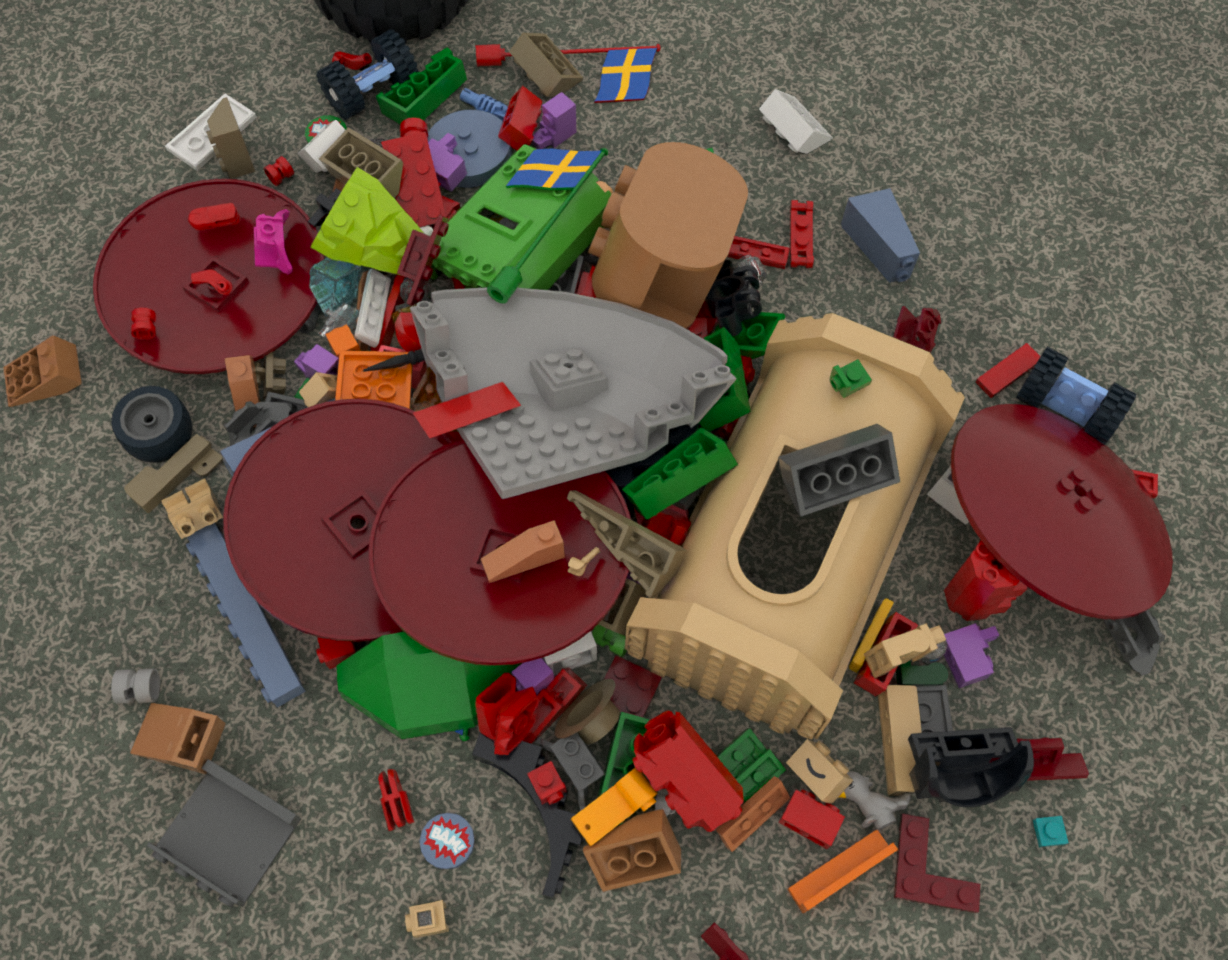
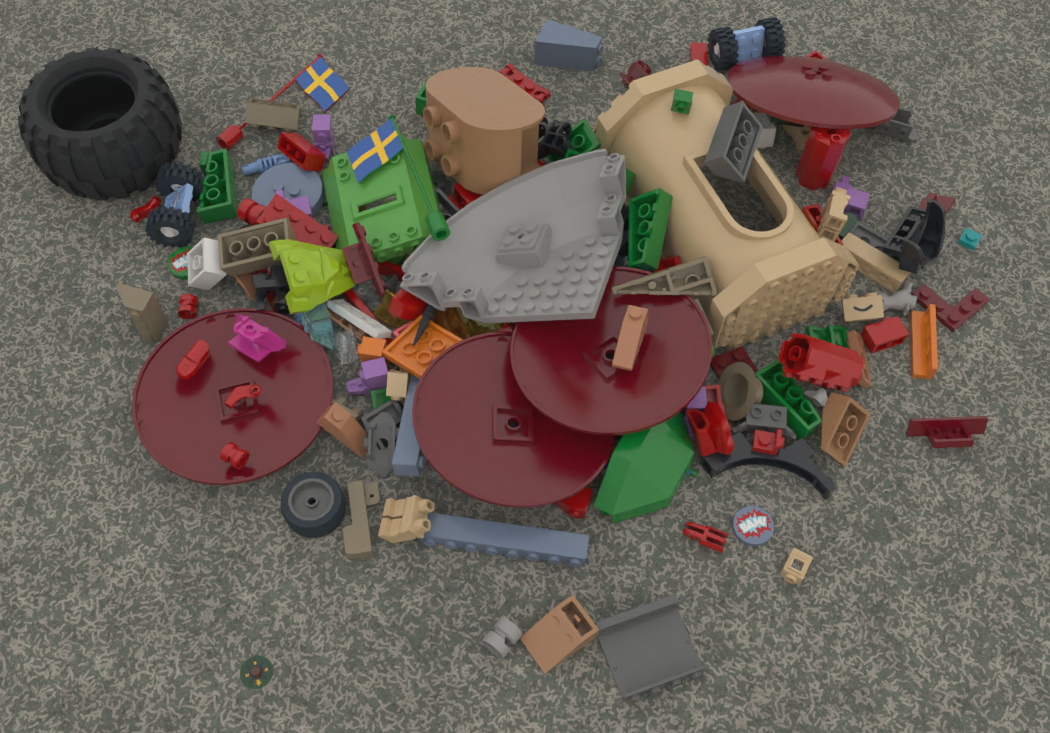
camera: 50 degrees left, 5 degrees down
(42, 372) = (196, 553): medium nougat slope -> none
(193, 143) = (106, 327): white tile -> none
(466, 409) = (501, 306): red sticker -> none
(578, 566) = (662, 317): tan hand -> none
(614, 806) = (809, 404): light orange door -> none
(794, 122) = (447, 33): white slope -> none

